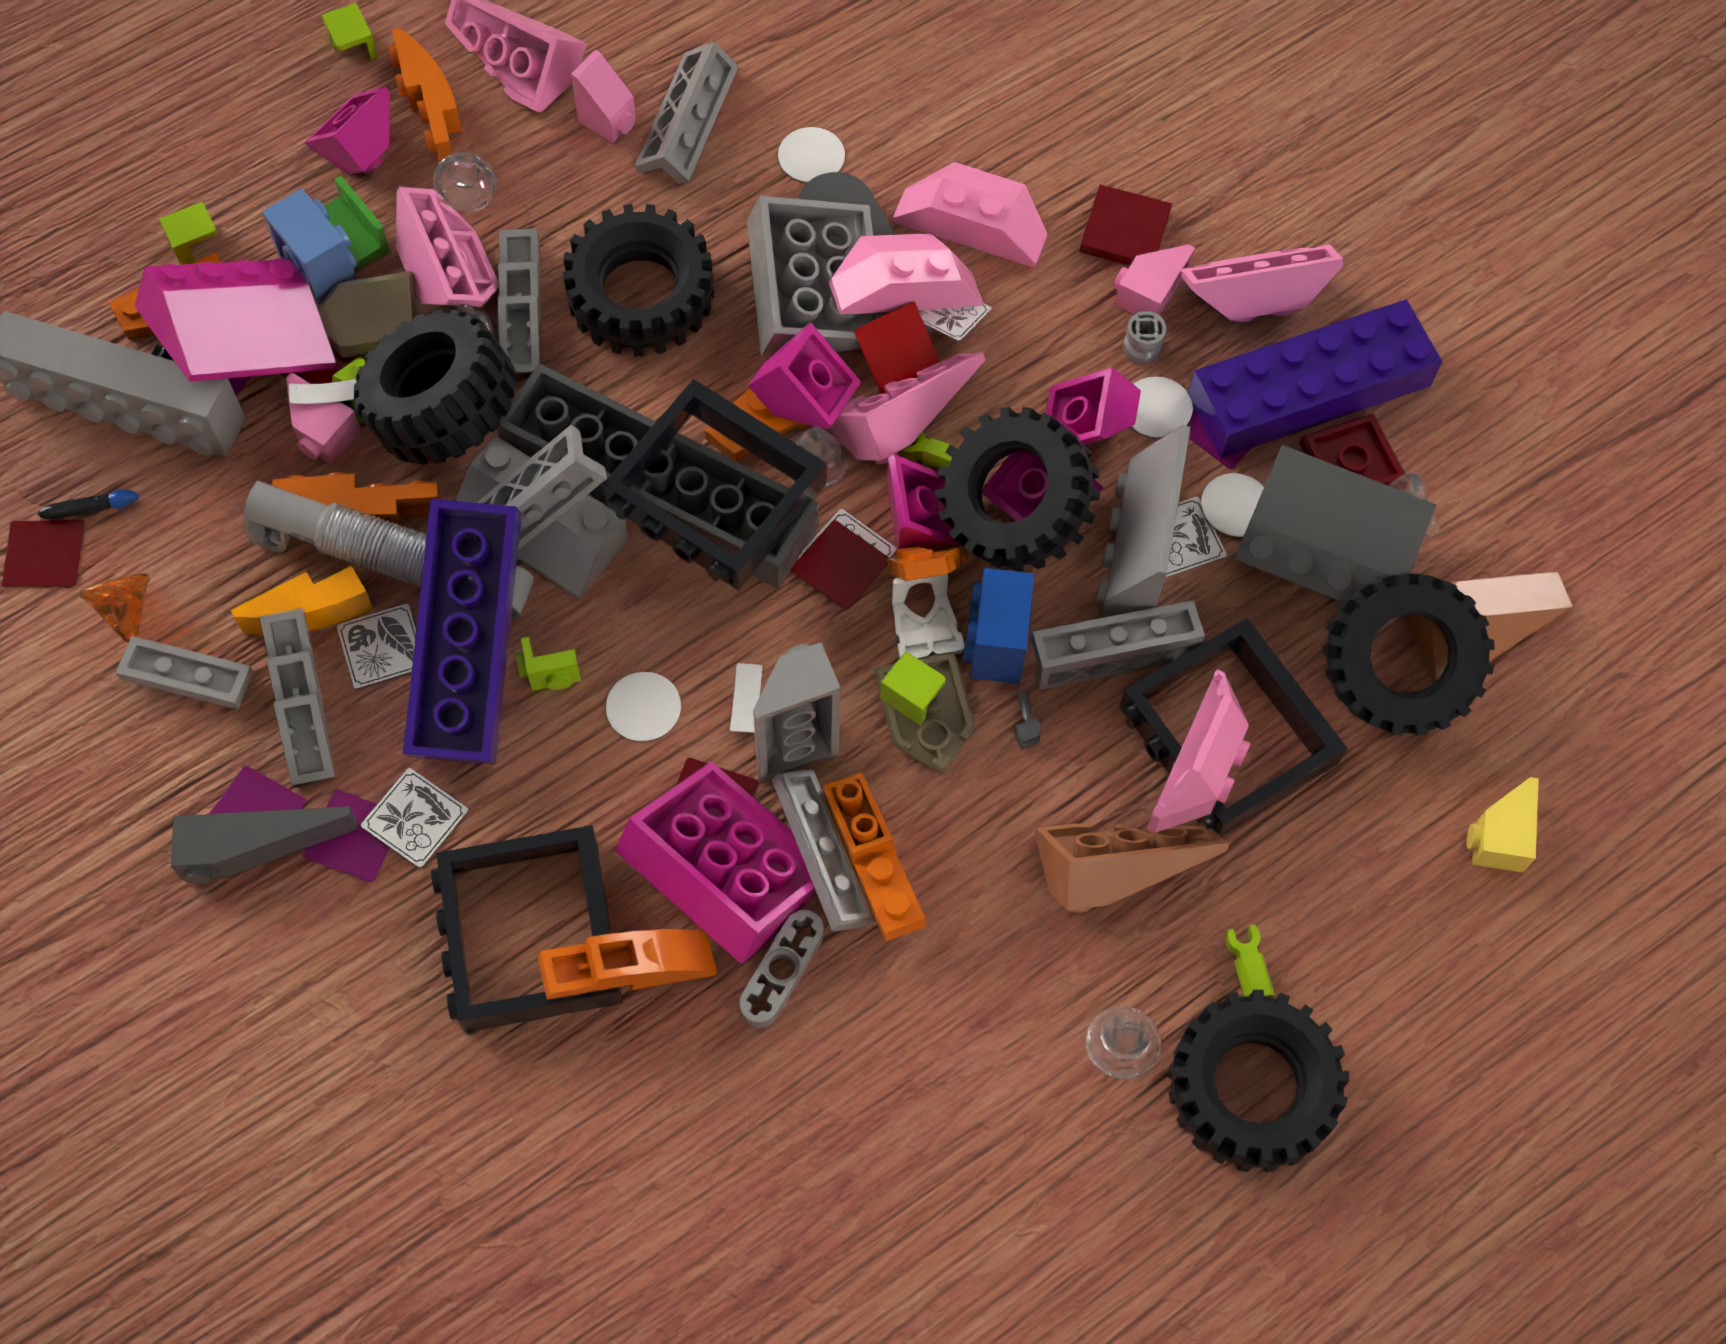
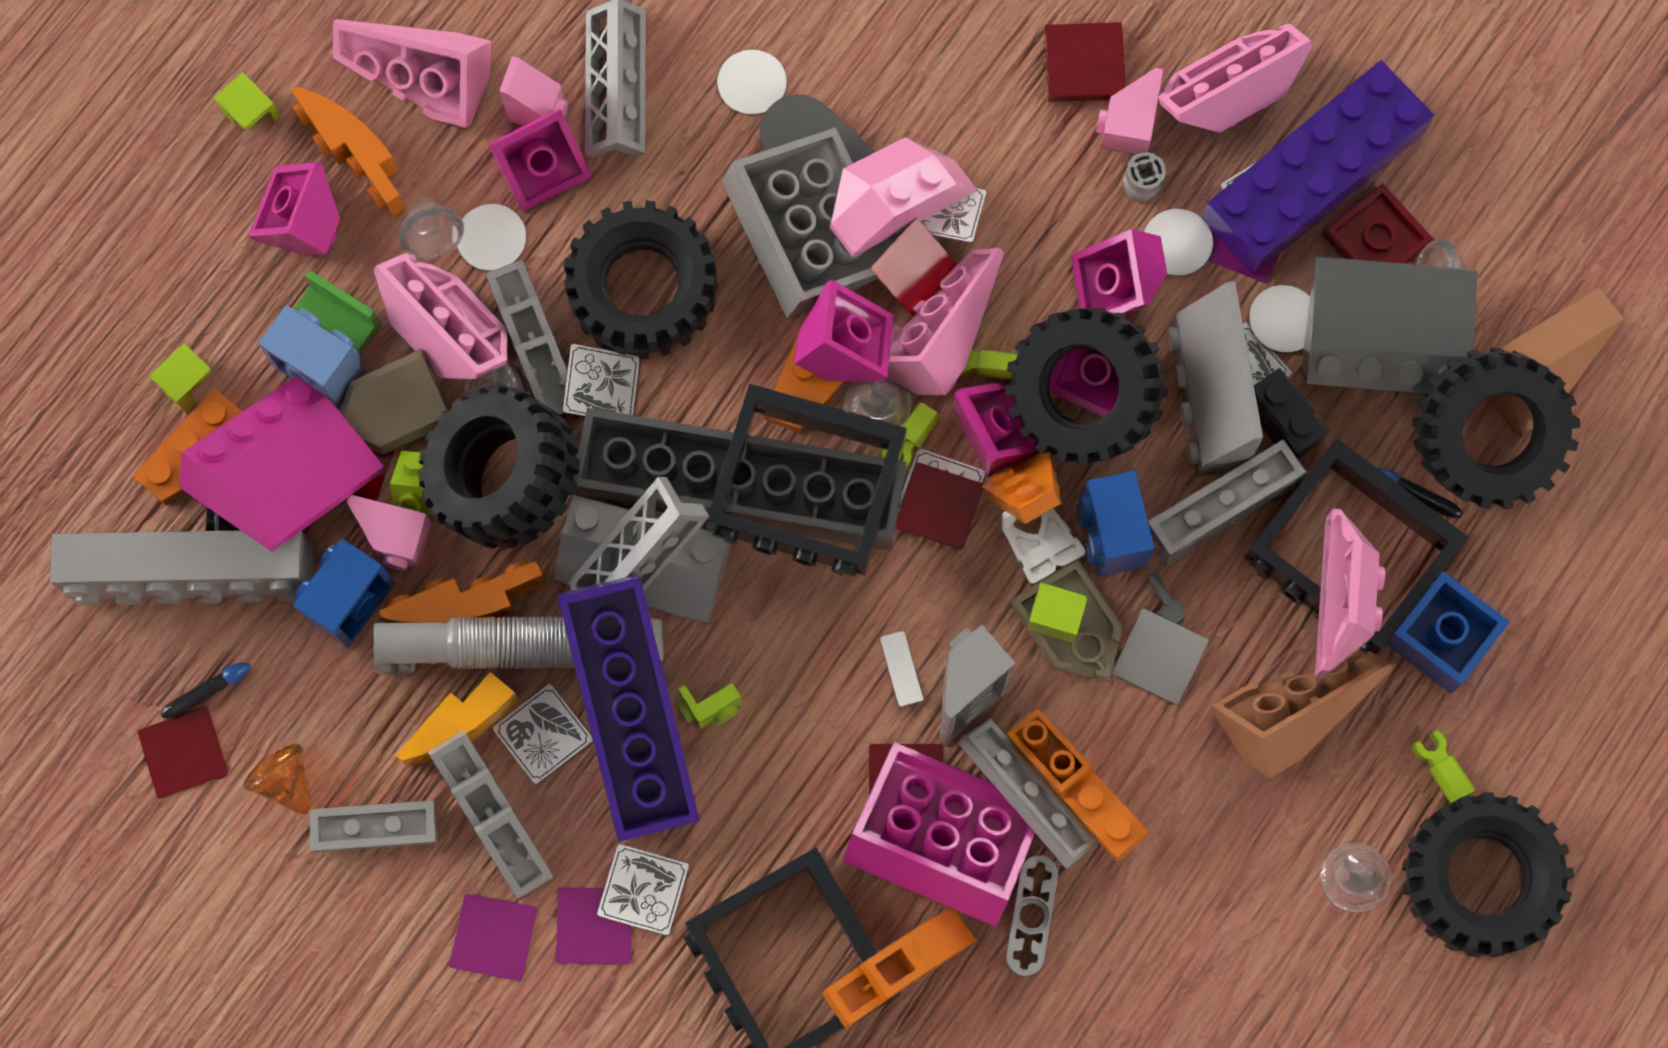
camera: 15 degrees left, 10 degrees up
(235, 842) = (489, 976): dark grey slope -> none
(245, 450) = (343, 592): none -> blue brick
(321, 392) = (390, 504): white sticker -> none
(521, 207) = (492, 237): none -> white sticker
(567, 352) = (600, 381): none -> white sticker
(589, 152) = (540, 160): none -> dark pink slope
(643, 706) = (809, 709): white sticker -> none
(842, 491) = (919, 427): none -> lime bar
(975, 212) = (935, 94): bright pink wedge -> none
(1002, 766) = (1160, 656): none -> light grey sticker
(1205, 580) = (1288, 415): none -> black brick
(1296, 832) = (1447, 632): none -> blue brick
(1333, 718) = (1426, 496): none -> black piece
(1507, 830) = (1631, 561): light yellow slope -> none

